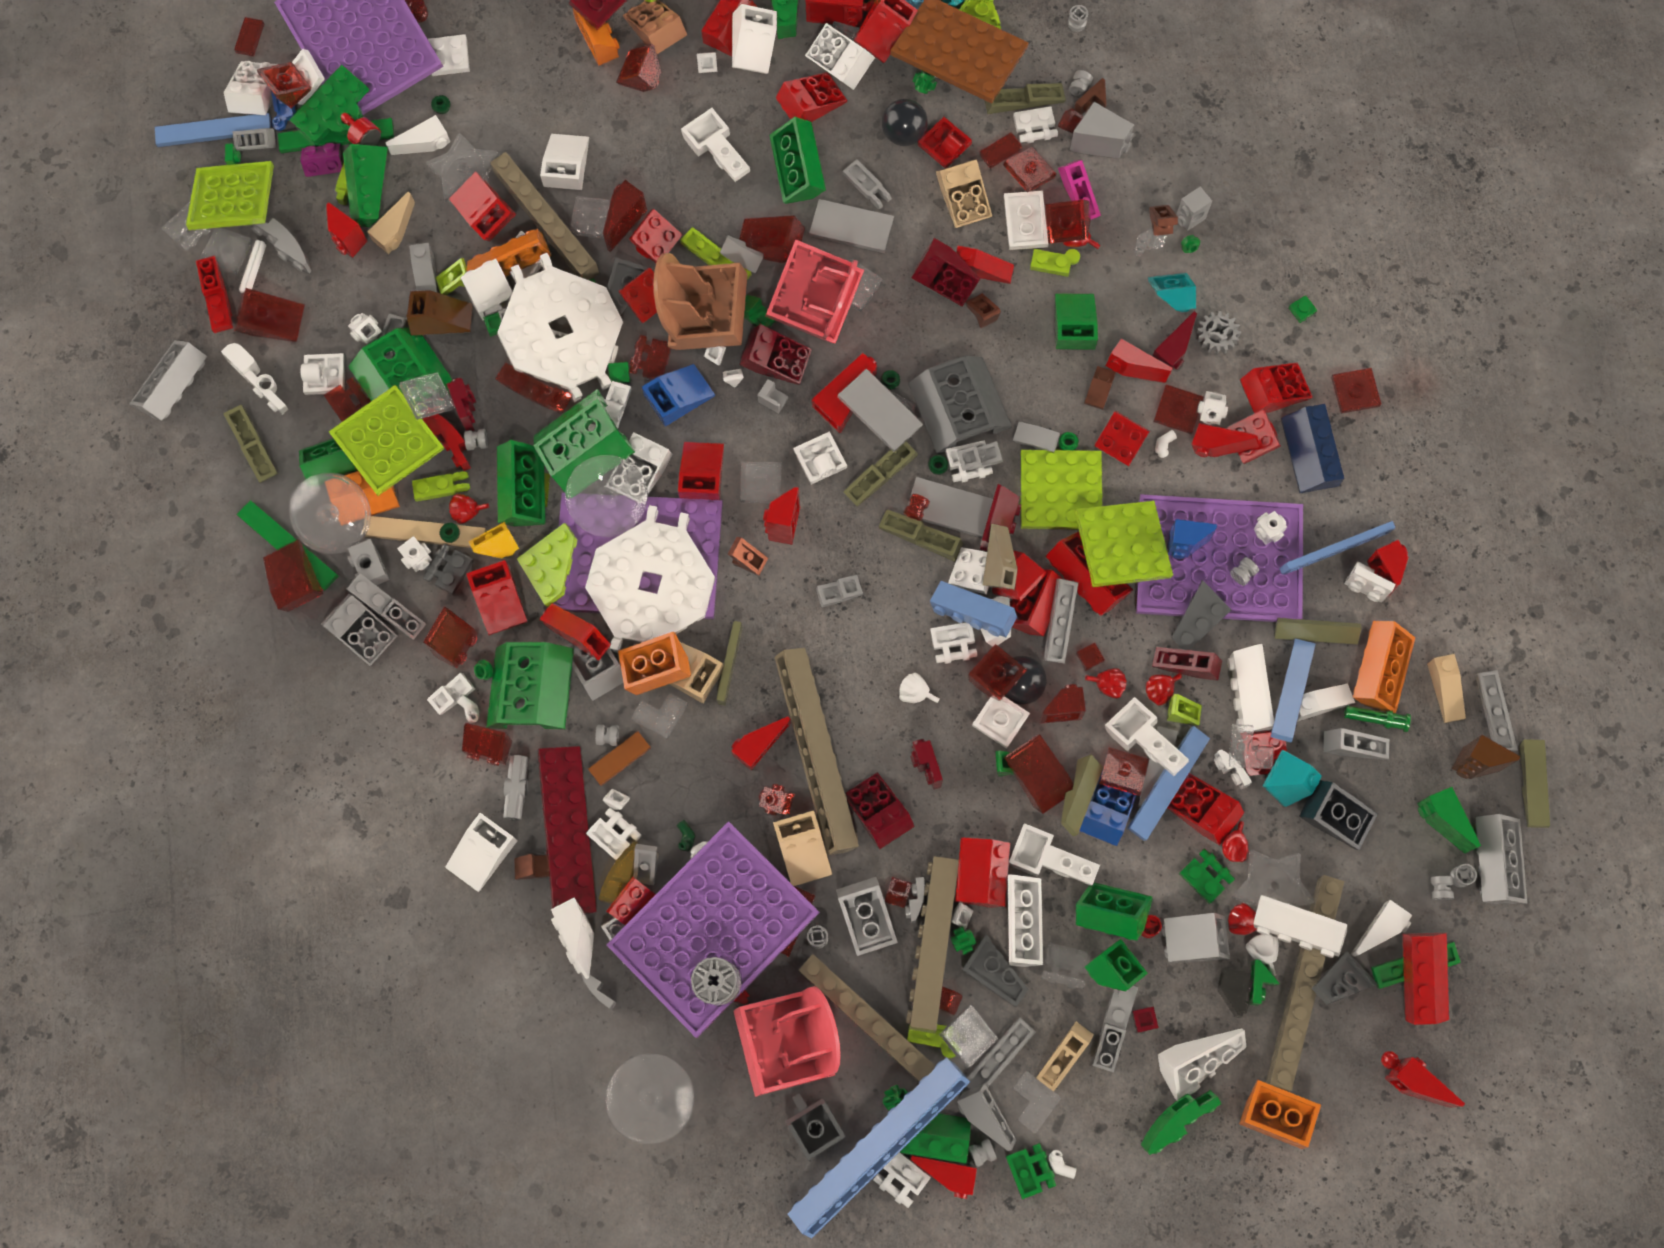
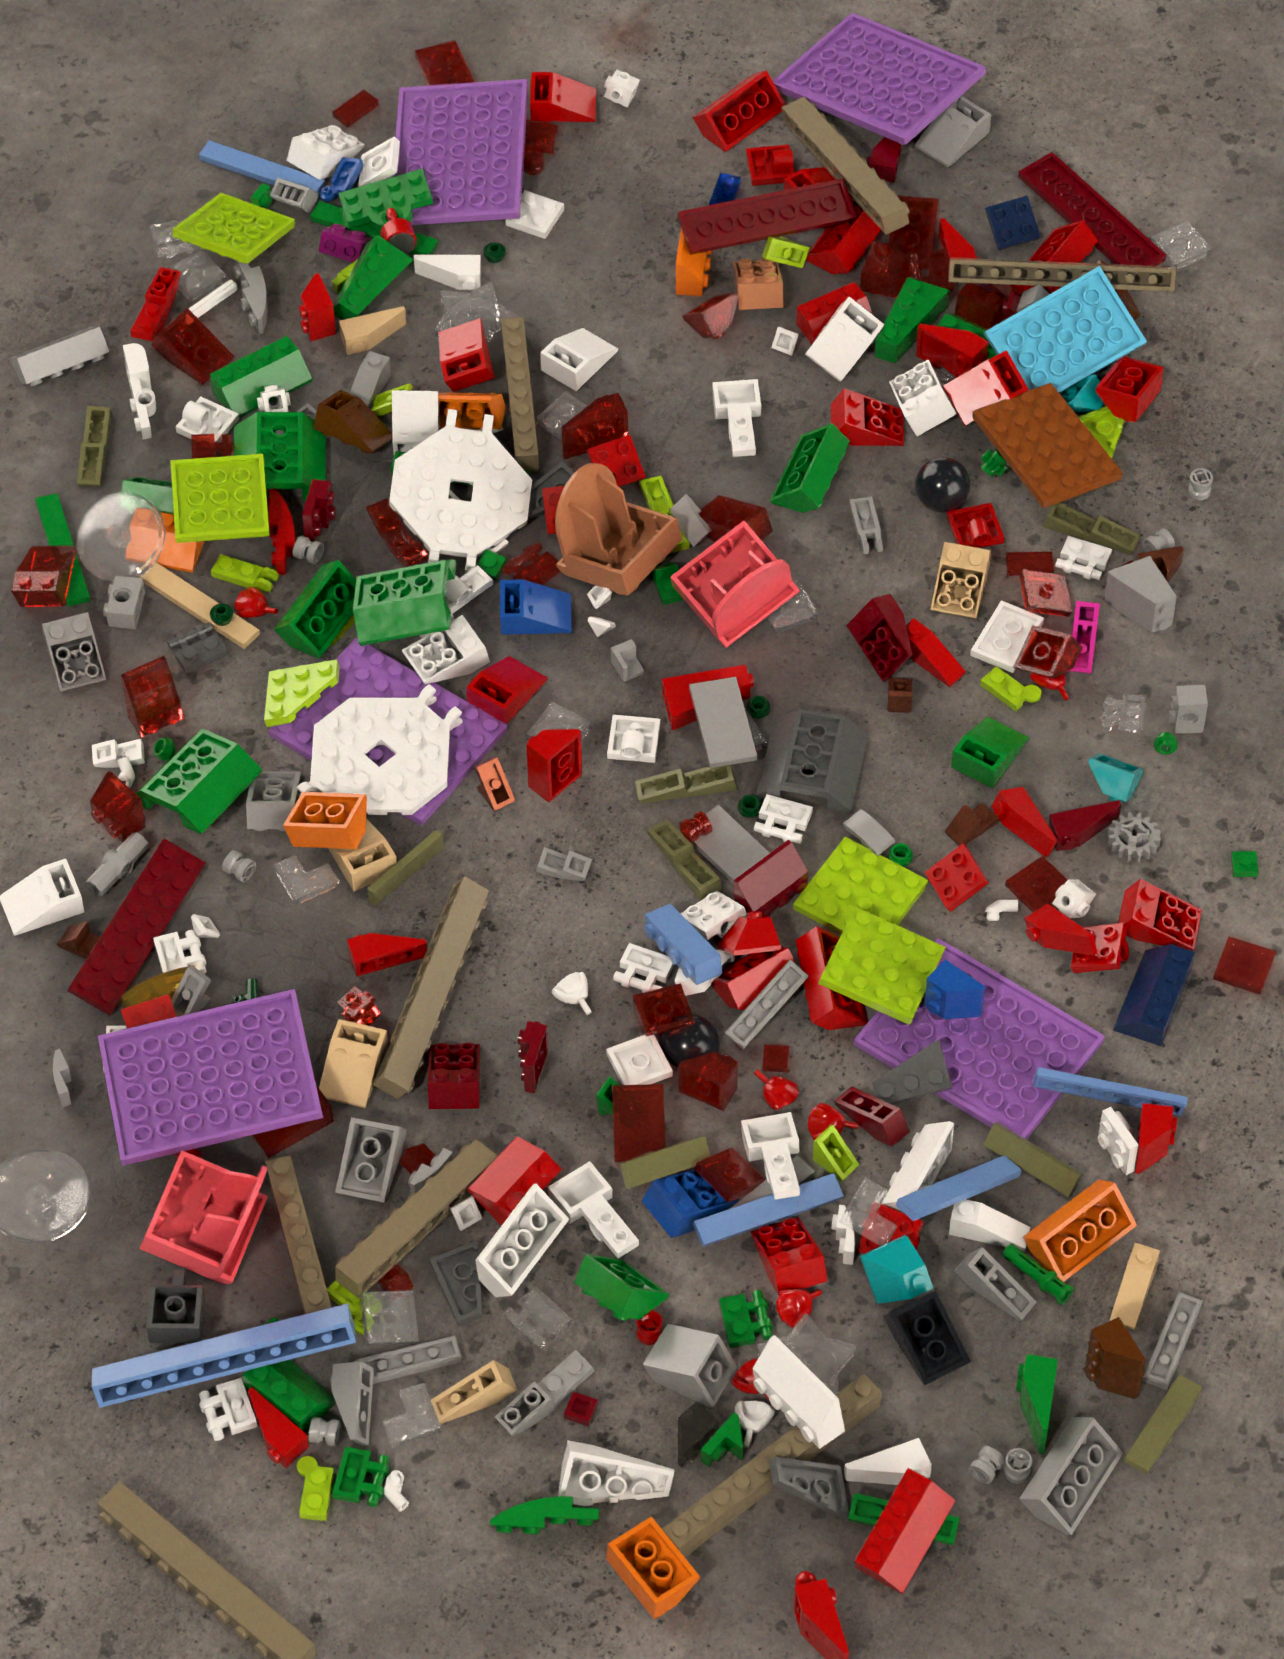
camera: 30 degrees right, 20 degrees down
(285, 83) = (356, 157): clear red slope -> none
(341, 301) = (242, 381): none -> green slope
(386, 606) = (111, 639): light grey slope -> none
(415, 554) = (174, 615): white brick -> none
(426, 395) = (285, 478): clear plate -> none
(495, 542) = (259, 644): yellow slope -> none
(497, 597) = (224, 691): red slope -> none
(575, 934) = (75, 1010): white slope -> none
(576, 631) = (276, 756): red slope -> none
(606, 495) = (393, 653): clear dish -> none
(619, 758) = (235, 895): dark orange tile -> none
(729, 981) = (175, 1112): light grey wheel -> none
(775, 355) = (657, 626): dark red slope -> none
(817, 937) = (308, 1151): light grey wheel -> none
(851, 226) = (823, 554): light grey tile -> none
(963, 940) = (449, 1233): green gear -> none
(980, 457) = (791, 816): light grey slope -> none
(1000, 560) = (740, 907): dark tan slope -> none
(1005, 1200) = (316, 1489): none -> lime hinge
(1116, 968) = (583, 1332): green slope -> none
(1162, 219) = (1137, 692): copper slope -> none
(1244, 571) = (991, 1058): light grey wheel -> none
(1270, 527) = (1048, 1032): white brick -> none

